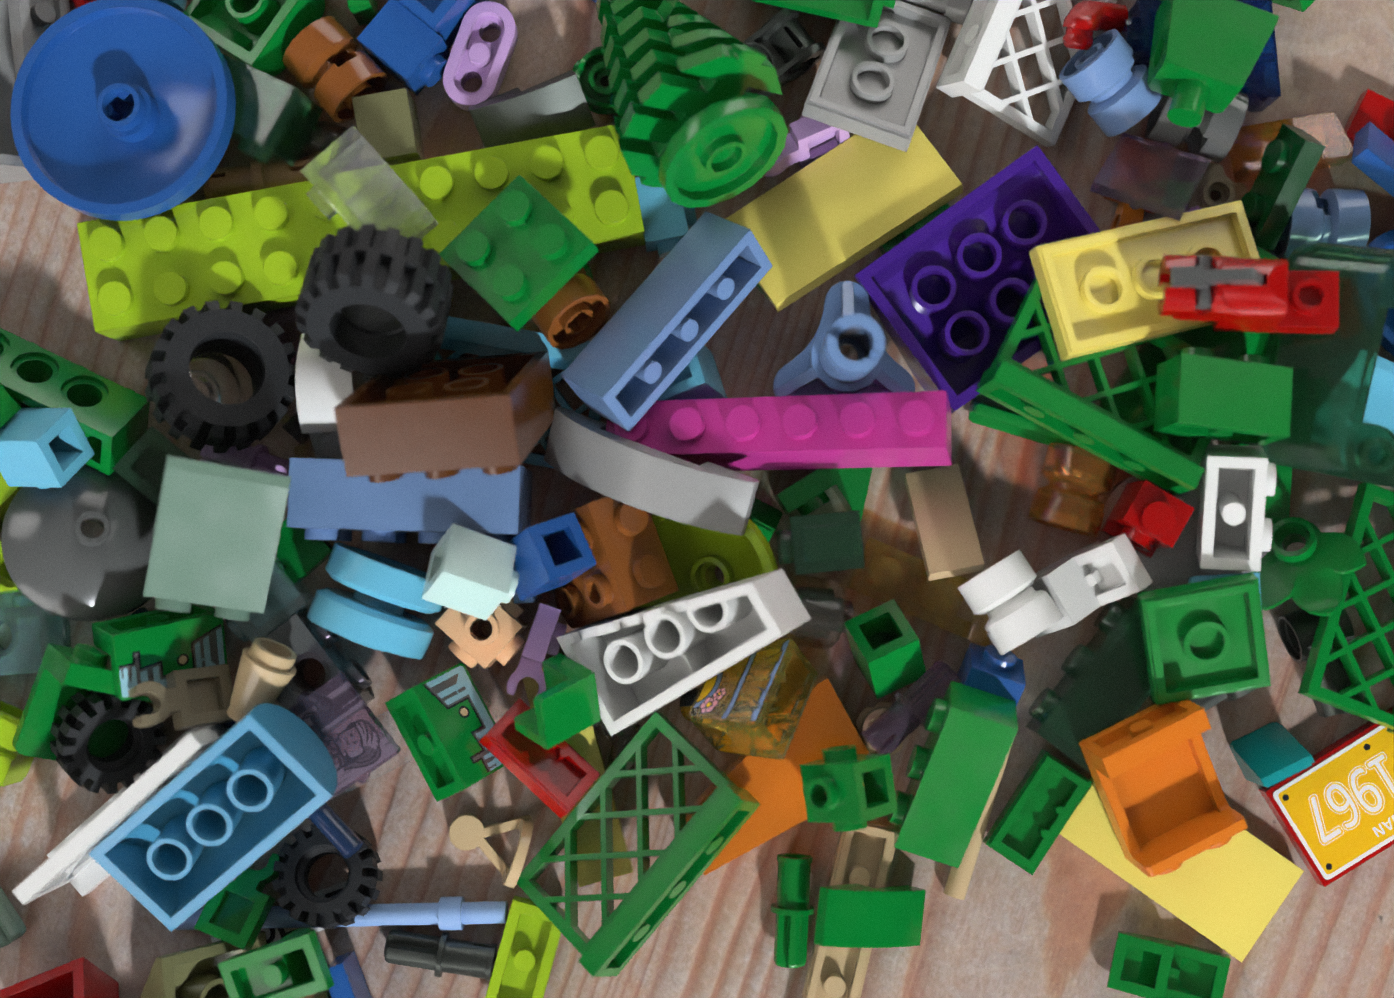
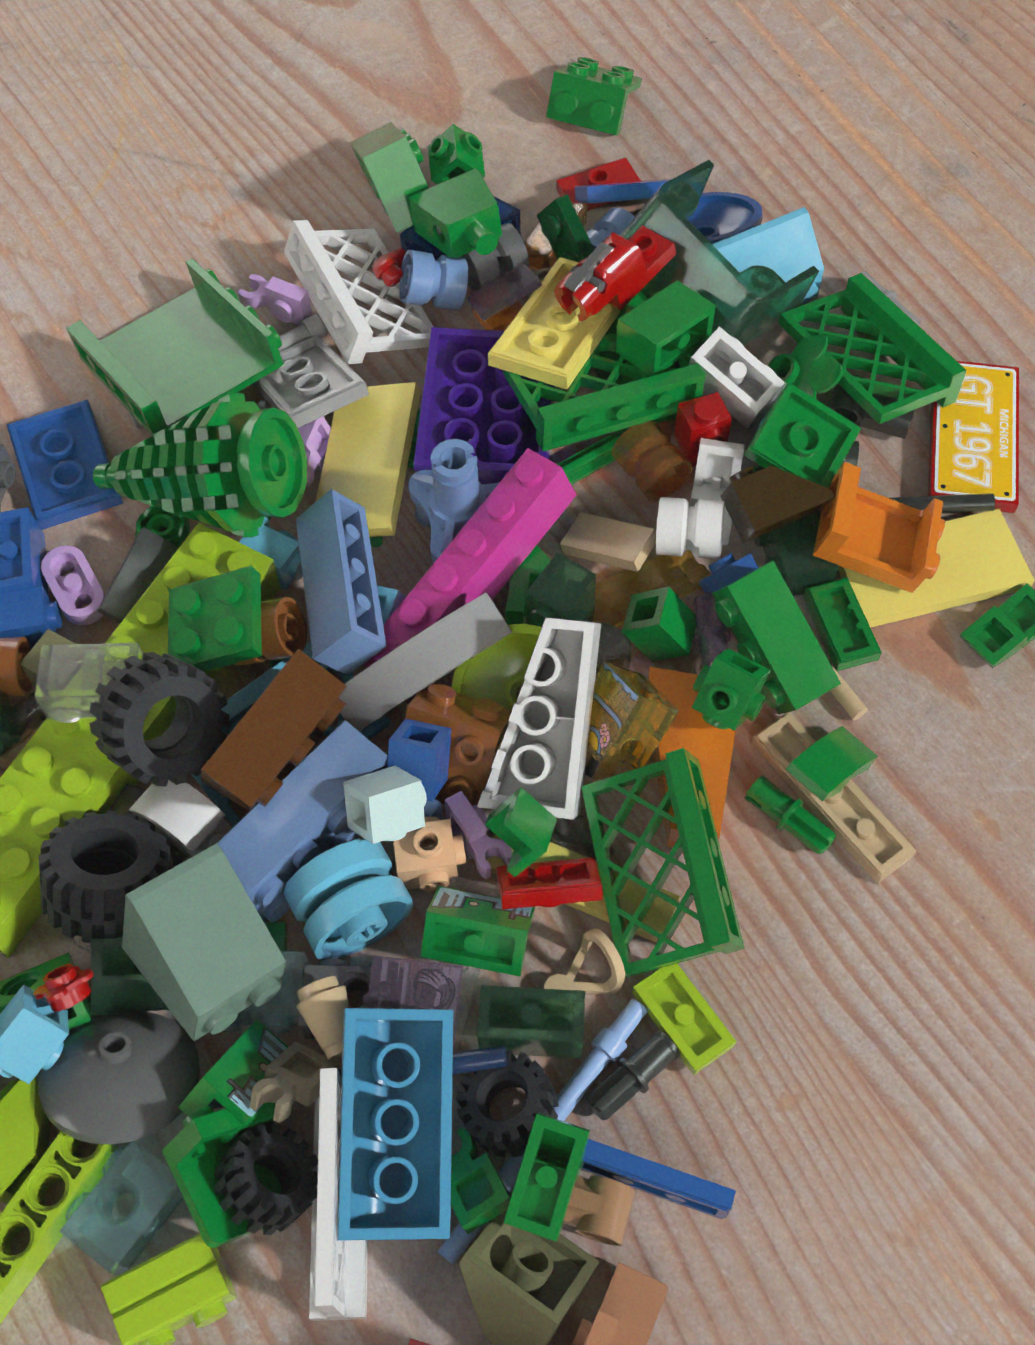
camera: 55 degrees left, 25 degrees down
(93, 446) = (65, 987): none -> red plate
(407, 843) = (532, 1020): none -> clear green brick
(1096, 664) = (771, 500): none -> dark brown slope
(1256, 803) = (953, 503): none -> pearl dark grey bar
(1270, 755) = (909, 474): teal slope -> none

